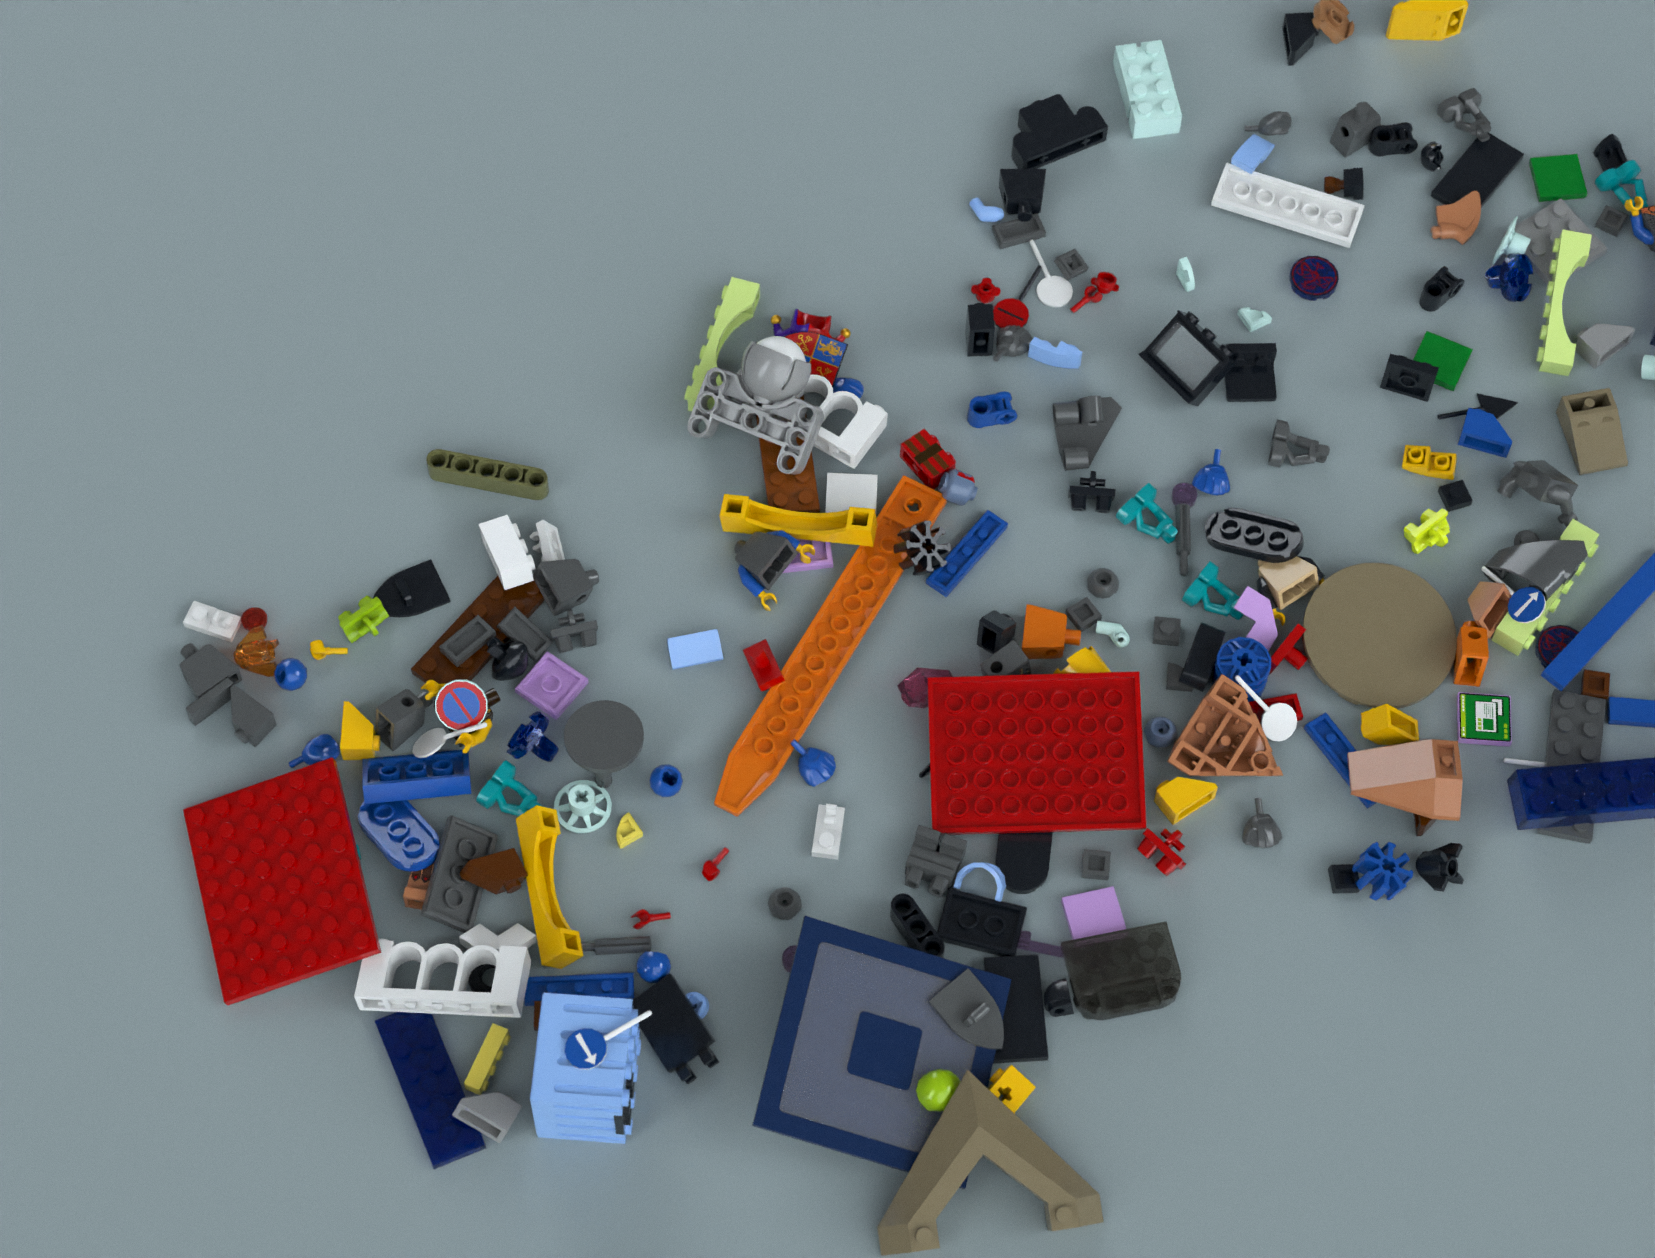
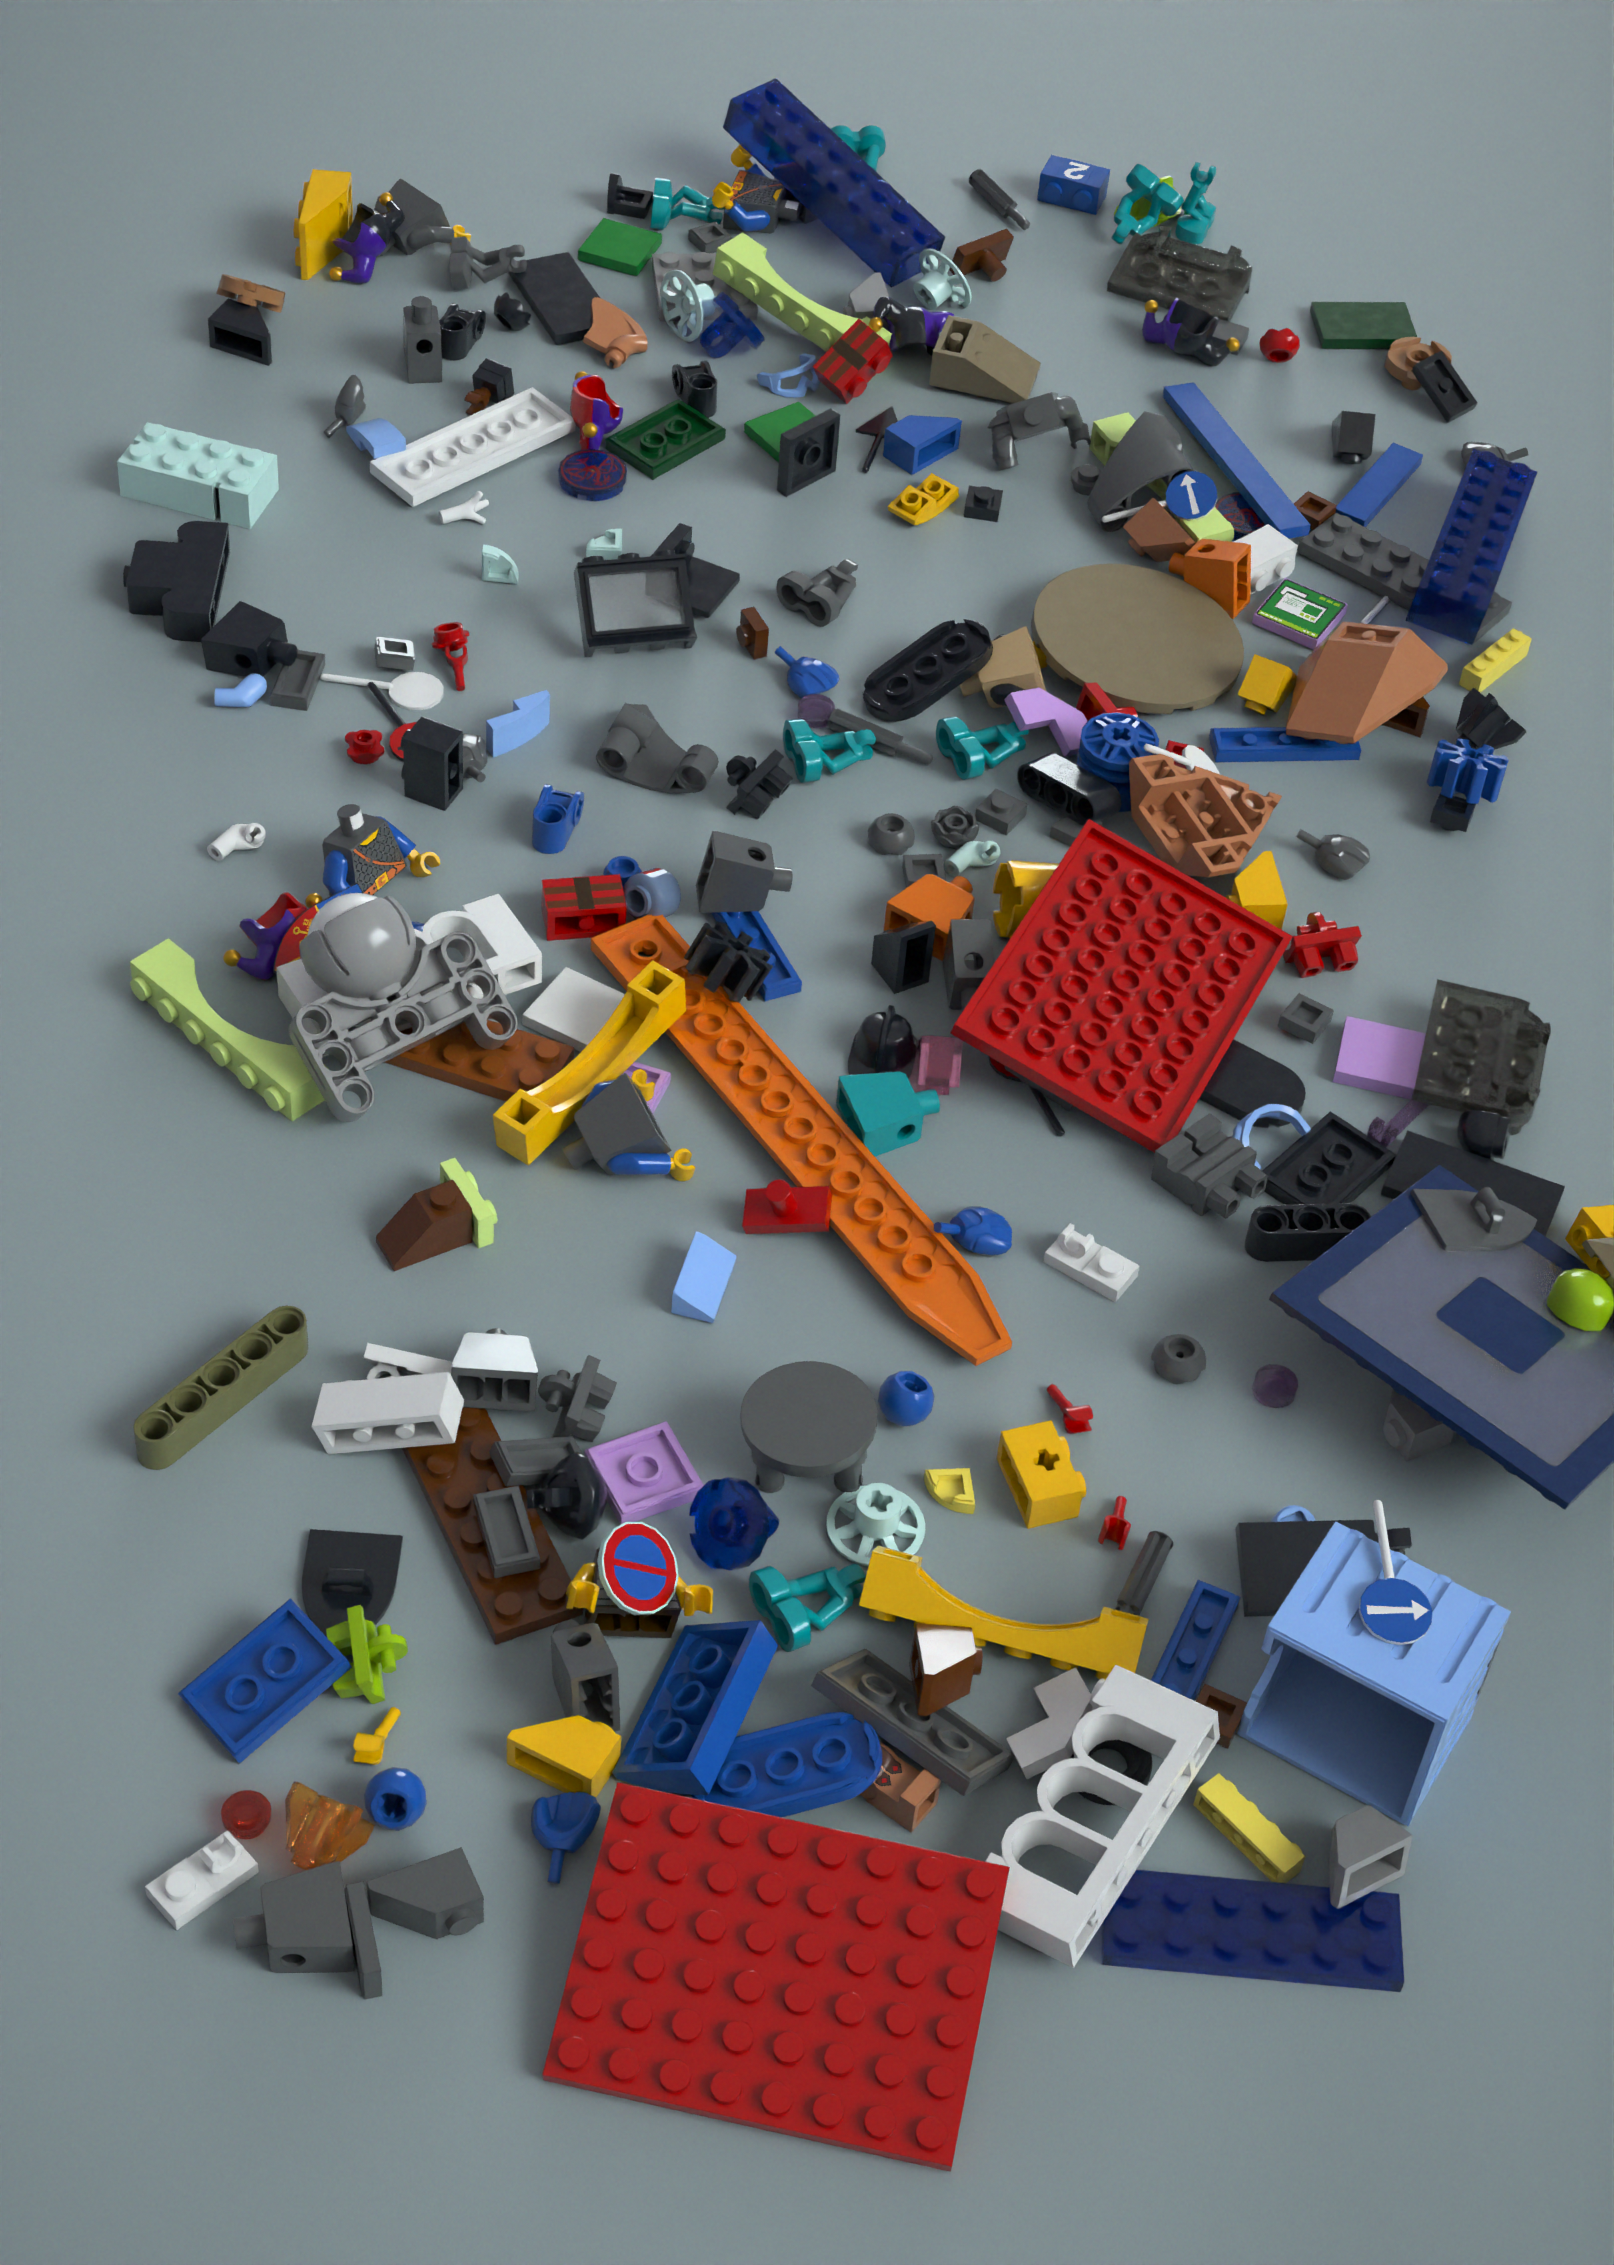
camera: 65 degrees left, 15 degrees down
(326, 586) = (265, 1680): none -> blue tile
(435, 738) = (651, 1656): white piece -> none
(647, 507) = (427, 1226): none -> reddish brown slope
(653, 966) = (1207, 1547): blue piece -> none
(659, 854) = (1040, 1474): none -> yellow brick
(669, 523) = (483, 1211): none -> yellowish green plate
(869, 678) = (884, 1109): none -> teal torso
(870, 272) = (237, 838): none -> white arm
(884, 337) = (369, 853): none -> torso
(924, 653) = (883, 1045): none -> black piece
(971, 465) = (624, 866): none -> blue plate
(992, 520) = (738, 875): none -> dark grey torso
(1130, 605) = (954, 827): none -> dark grey plate
(1223, 430) = (753, 633): none -> reddish brown plate
(1227, 233) = (465, 510): none -> white bar
(1365, 246) = (593, 410): none -> piece
(1381, 298) = (665, 439): none -> dark green tile
(1430, 532) = (1018, 539): neon yellow hips -> none
(1432, 47) = (367, 239): none -> piece
(1476, 57) = (423, 221): none -> dark grey torso
(1498, 343) = (773, 381): none -> light blue helmet
(1511, 672) = (1271, 556): none -> white brick
(1521, 851) = (1495, 661): none -> light yellow piece
(1522, 358) = (853, 361): none -> red brick
(1594, 372) = (908, 324): none -> black piece

